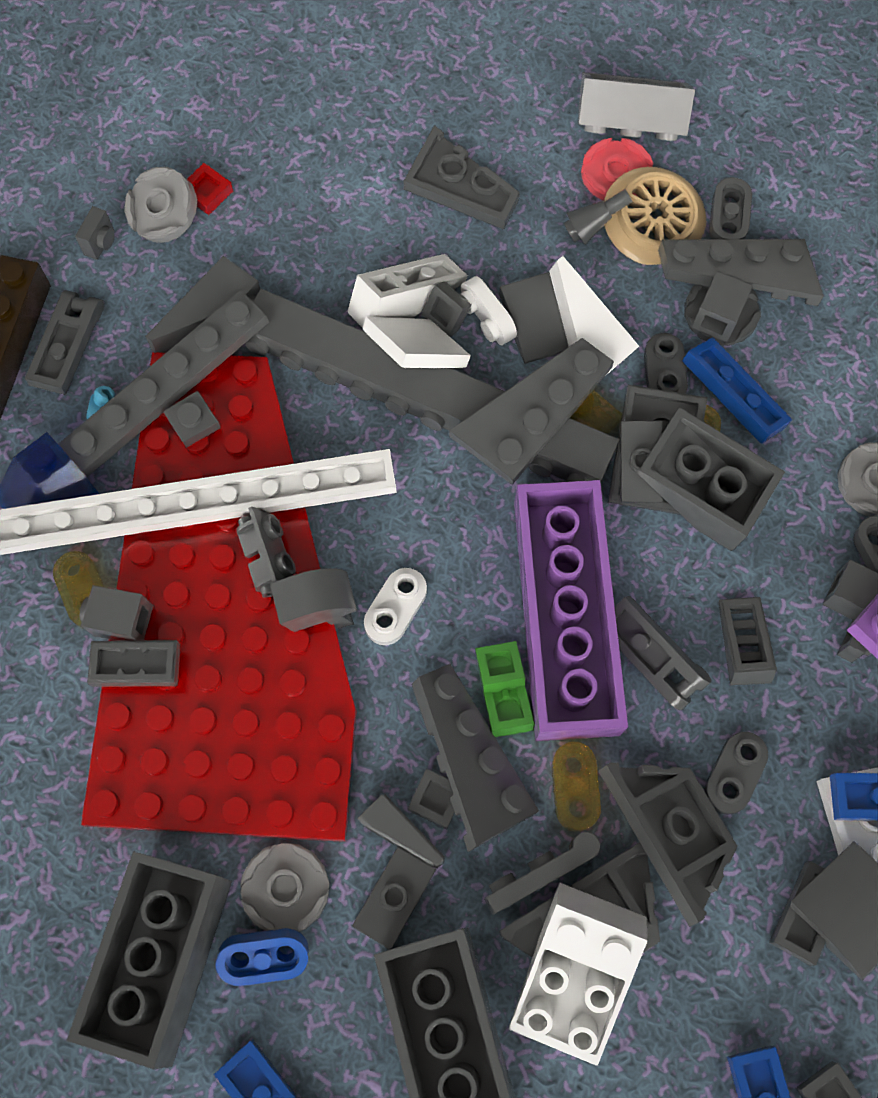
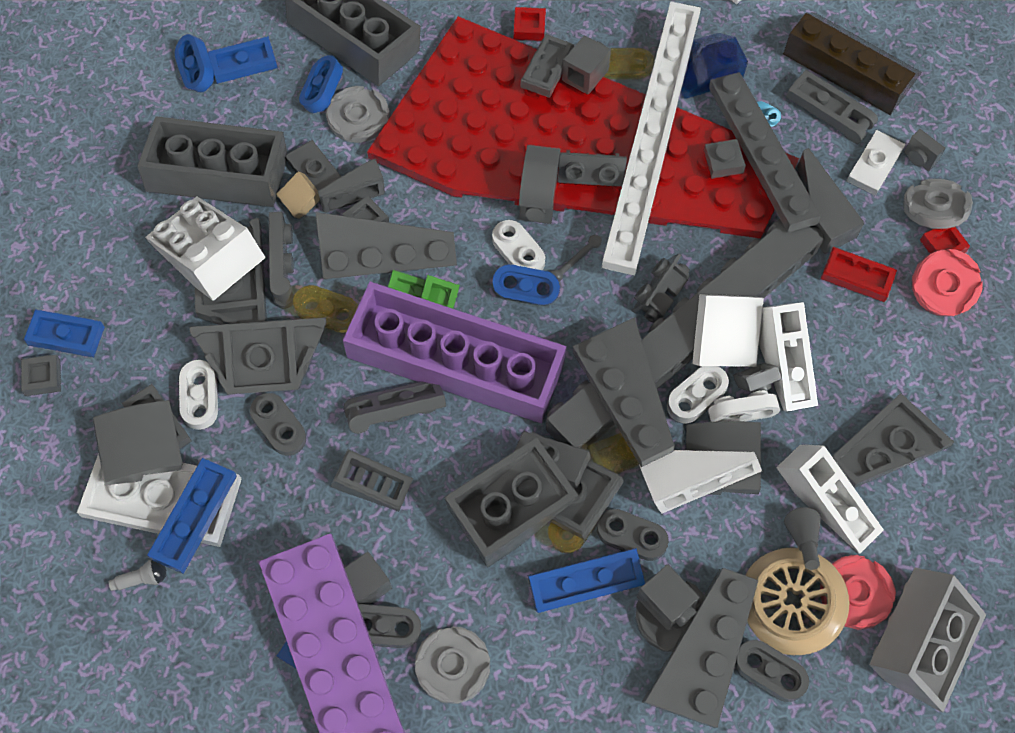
camera: 115 degrees right, 5 degrees down
(61, 725) = (529, 23): none -> red plate
(124, 279) = (876, 162): none -> white plate
(256, 174) = (947, 282): none -> coral tile
(278, 255) = (859, 274): none -> red plate
(348, 530) = (593, 242): none -> dark grey hinge
(366, 435) = (652, 296): none -> dark grey hinge
(440, 899) = (299, 195): none -> tan tile
(443, 576) = (527, 284): none -> blue plate
(491, 357) = (696, 395): none -> white plate
(538, 214) = (826, 489): none -> white slope
(752, 883) = (198, 396): none -> white plate

